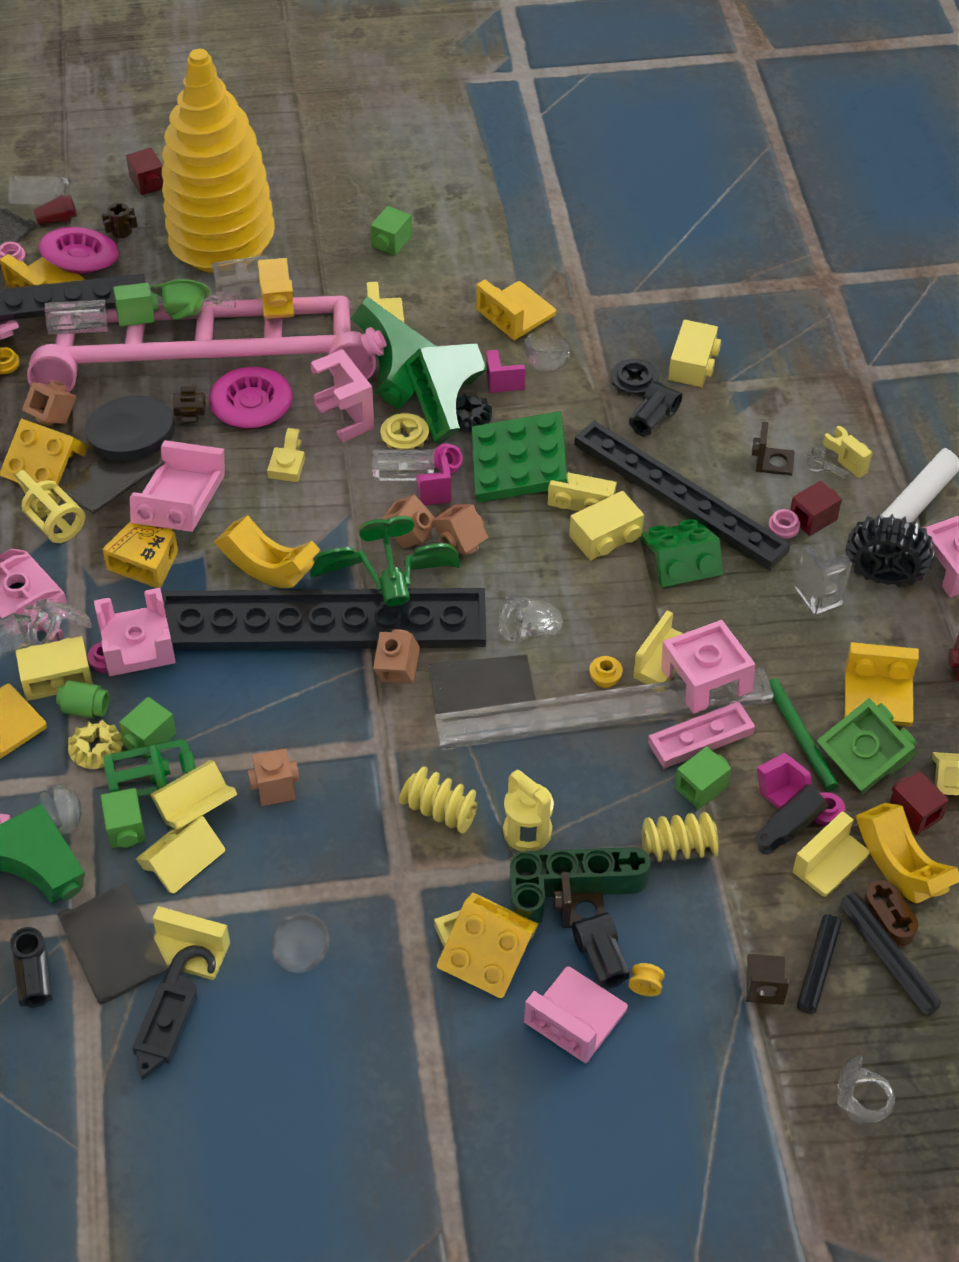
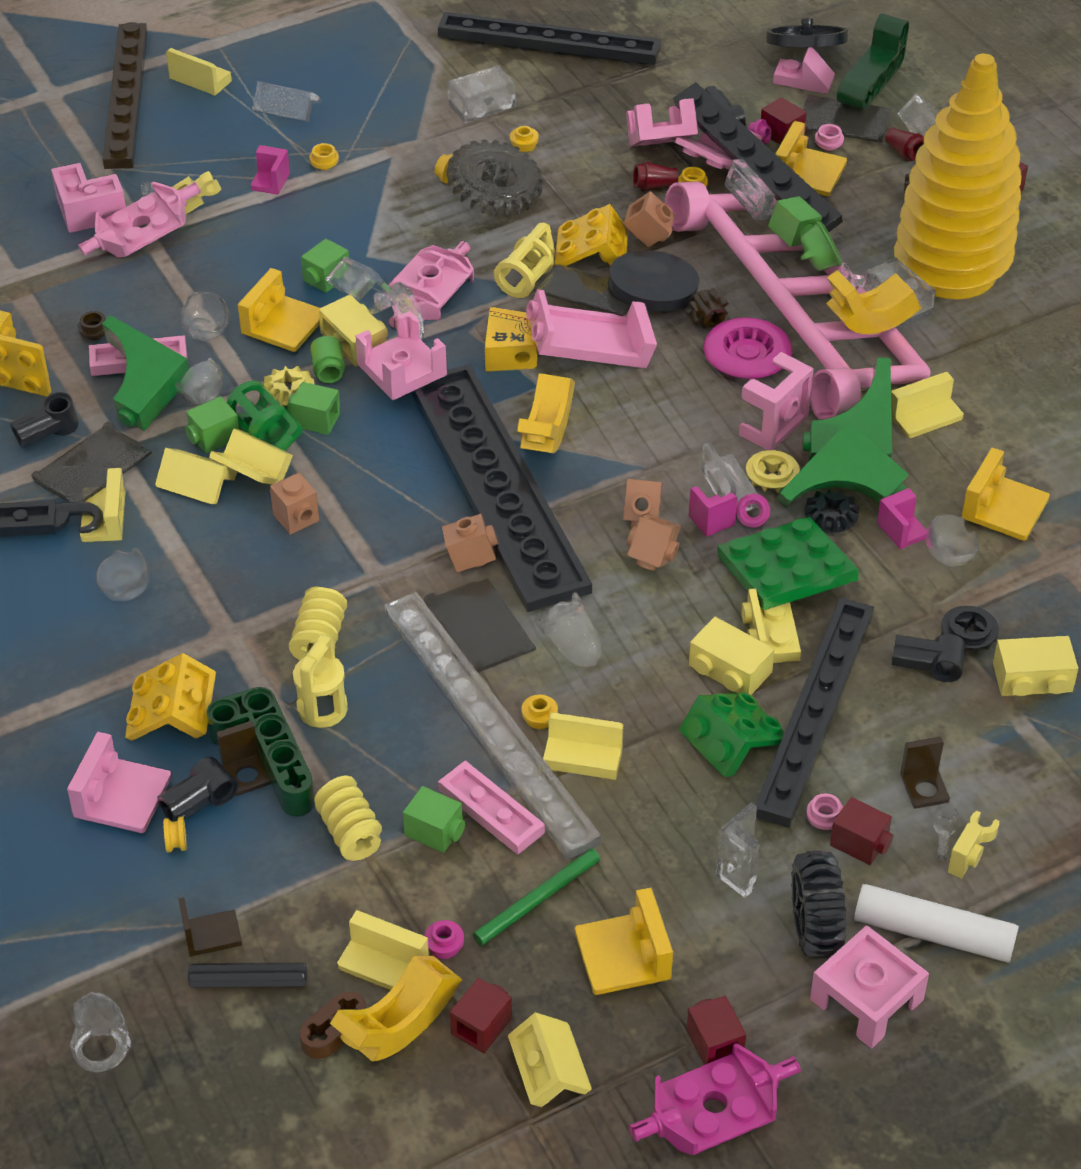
camera: 70 degrees right, 5 degrees down
(78, 249) = (860, 172): dark pink wheel -> none
(288, 461) = (685, 401): light yellow plate -> none
(373, 342) = (841, 389): bright pink plate -> none
(391, 230) = (1048, 373): bright green brick -> none
(392, 582) = (549, 504): green plant -> none
(706, 661) = (565, 770): bright pink panel -> none
(781, 779) = (457, 888): dark pink panel -> none
(791, 819) = (407, 900): black piece -> none
(868, 745) = (537, 951): bright green plate -> none
(891, 953) = (279, 1036): black axle -> none

